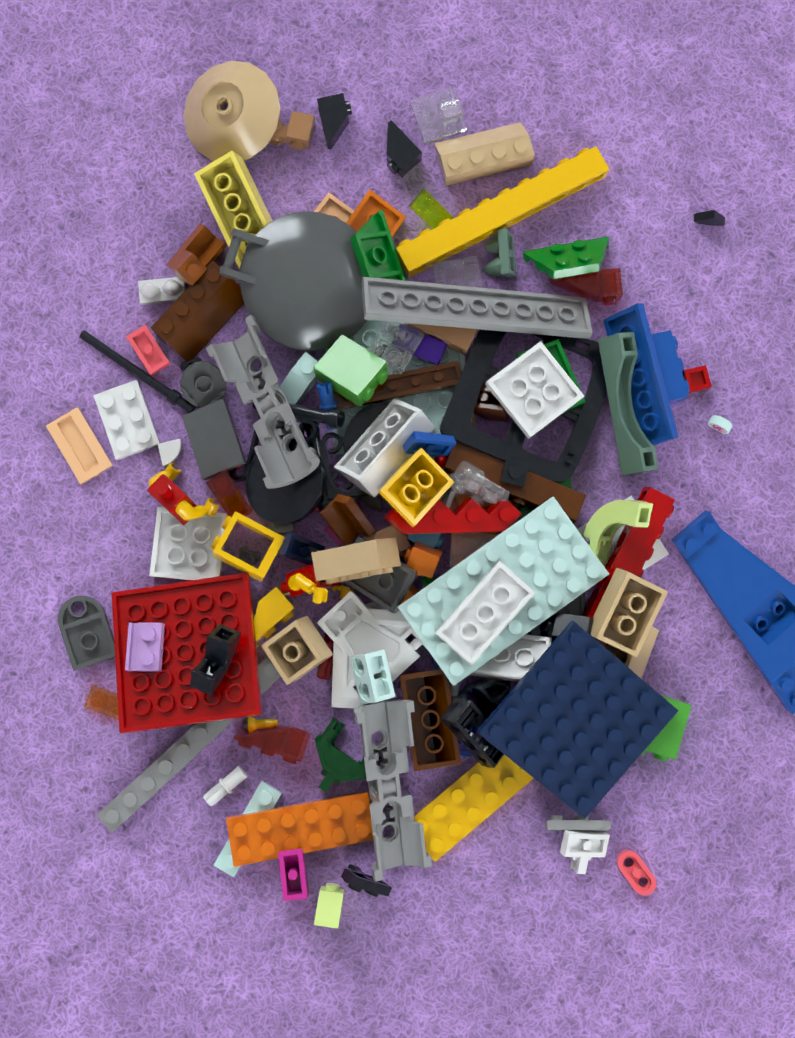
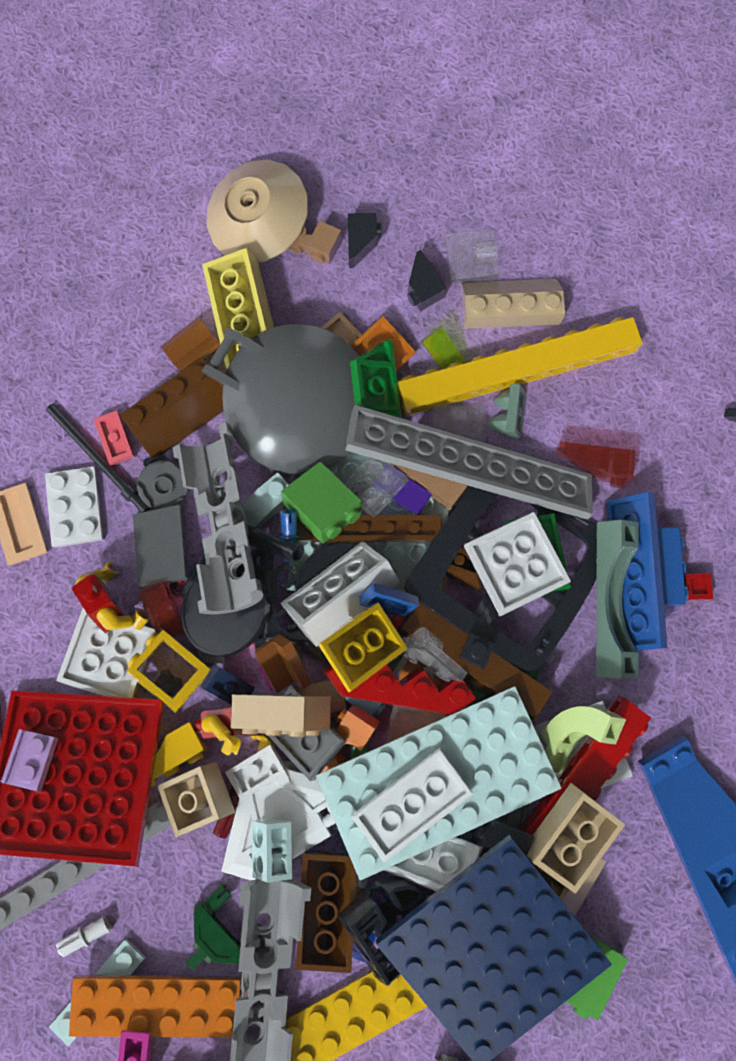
camera: 15 degrees right, 5 degrees down
(160, 290) = (141, 378): white tile -> none
(169, 451) = (111, 549): white tile -> none
(186, 266) = (172, 358): dark orange brick -> none
(218, 656) = (106, 788): black brick -> none
(250, 724) = (128, 872): yellow piece -> none
(284, 740) = (158, 899): clear red slope -> none
(569, 258) = (582, 429): green wing -> none
(720, 424) = (715, 642): light aqua tile -> none

